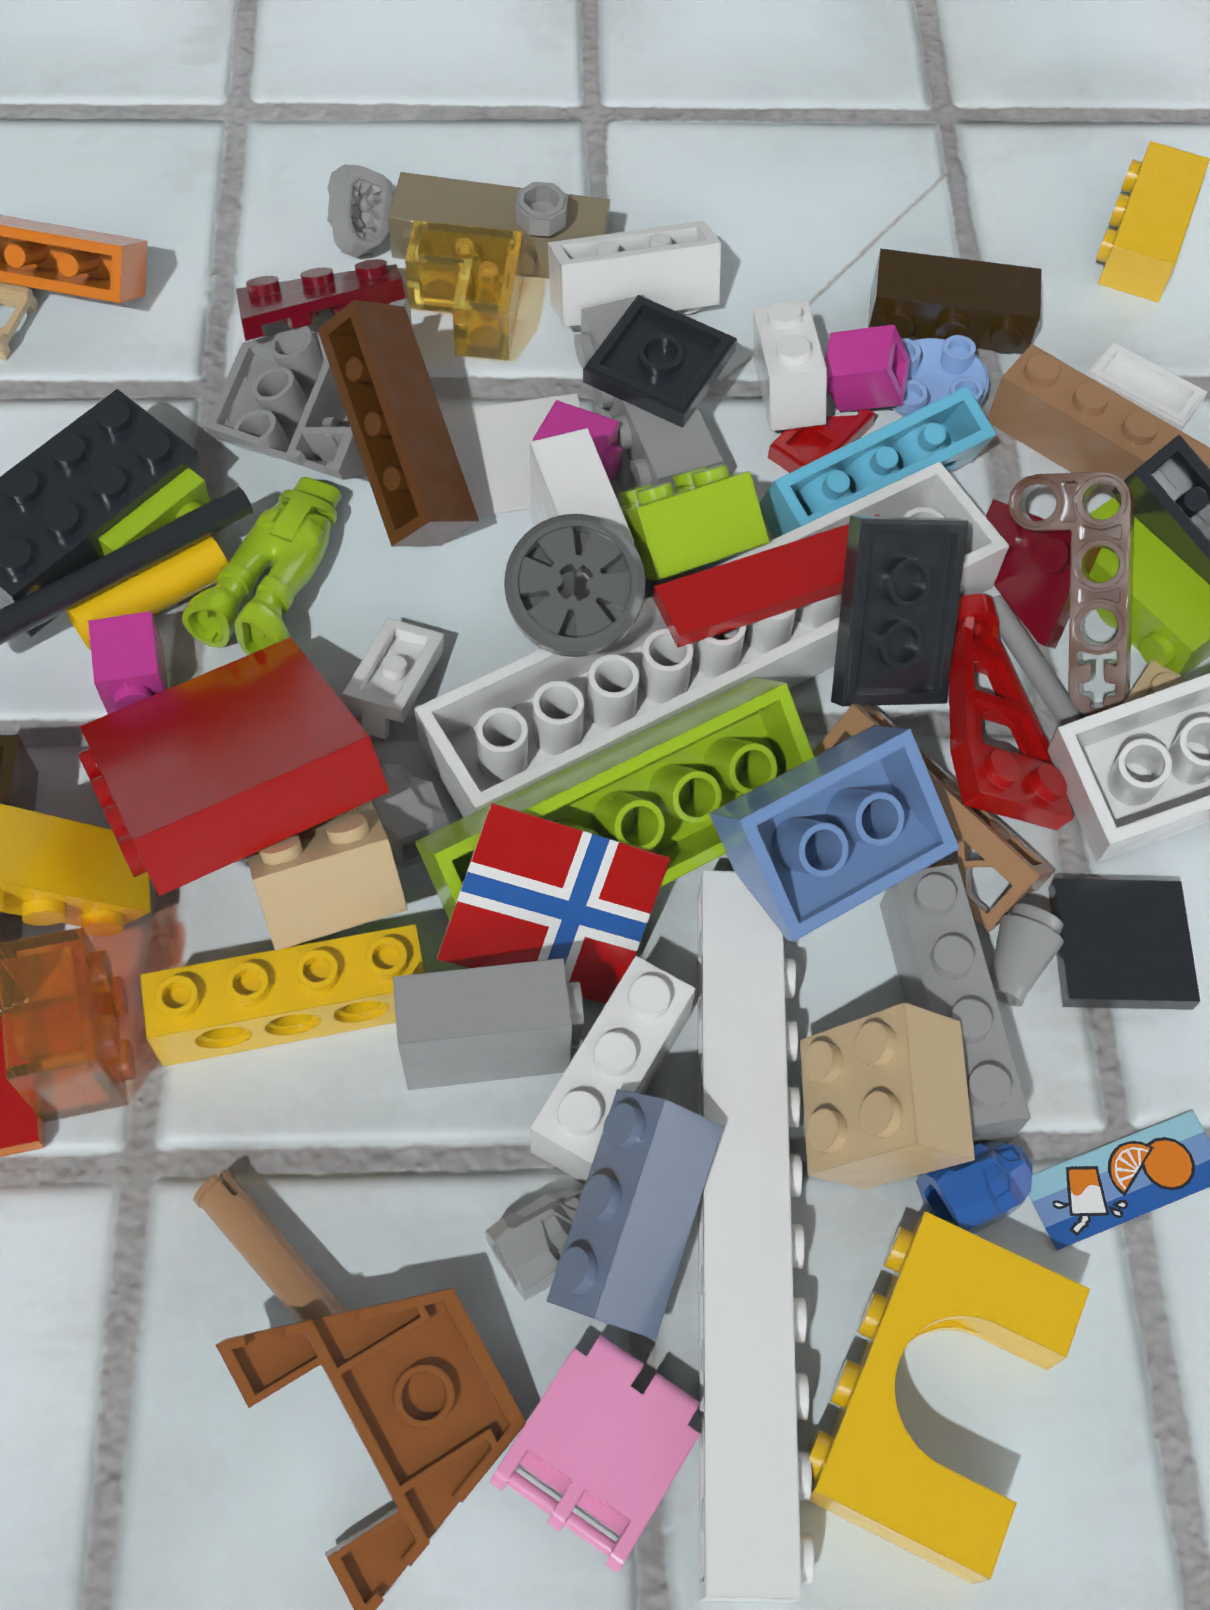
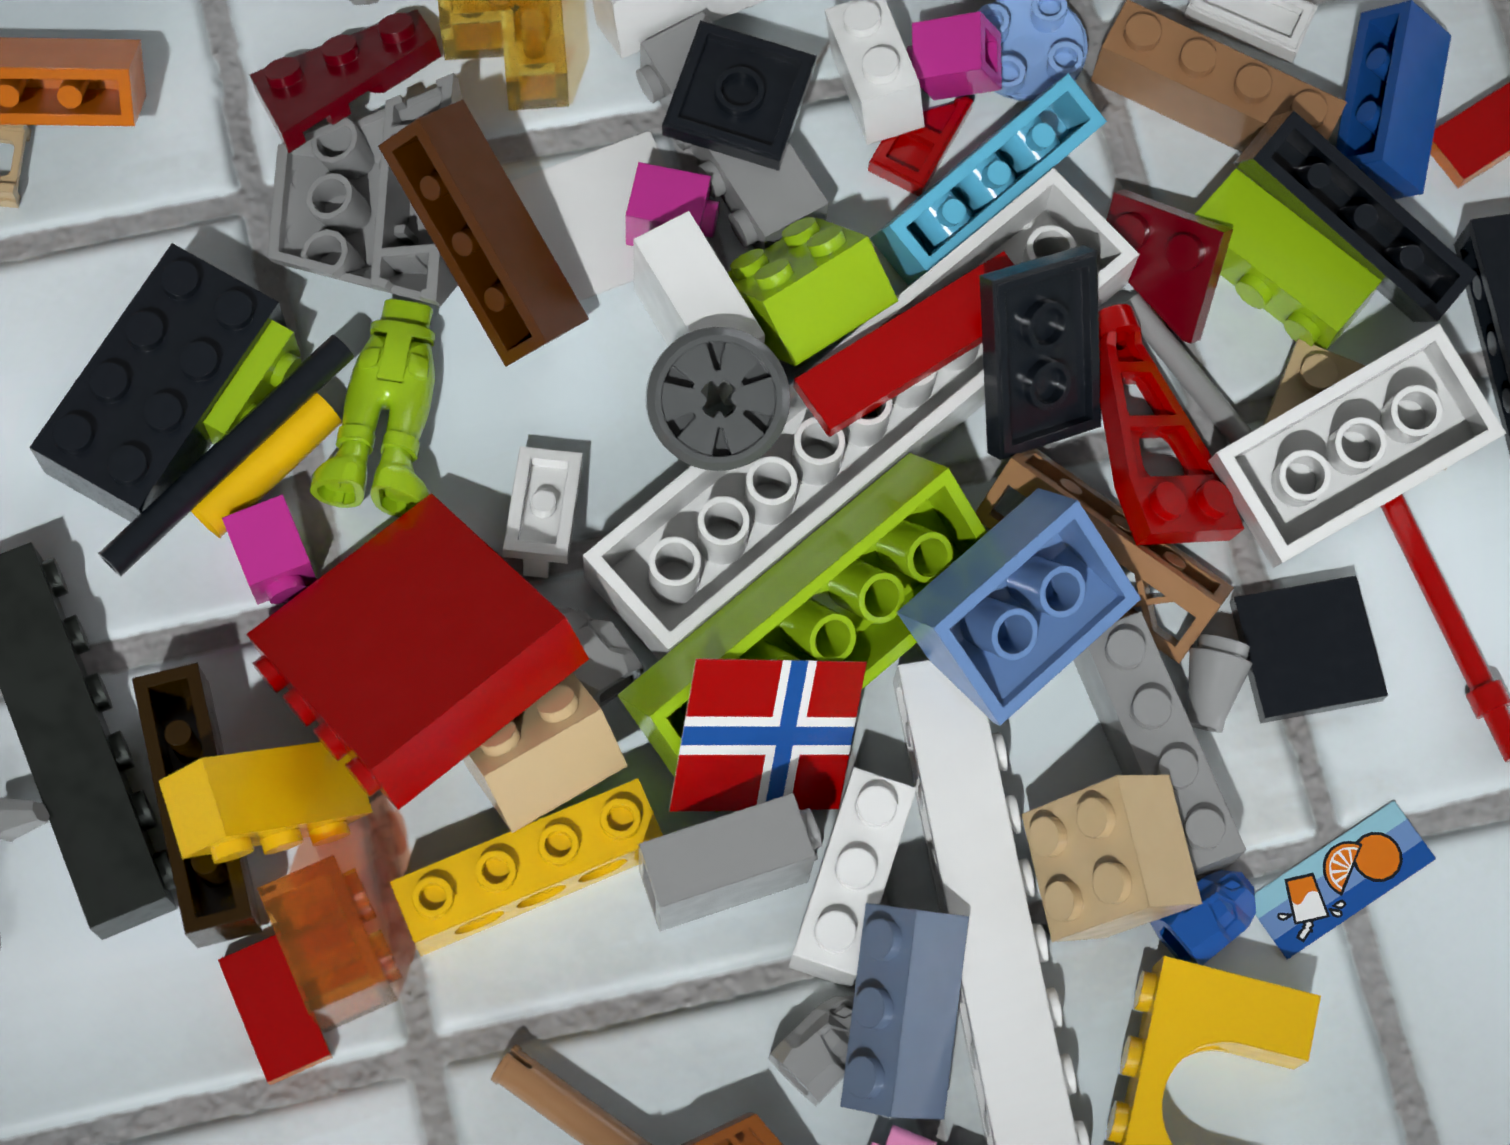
camera: 15 degrees left, 10 degrees up
(1085, 593) = (1225, 293): beam -> none

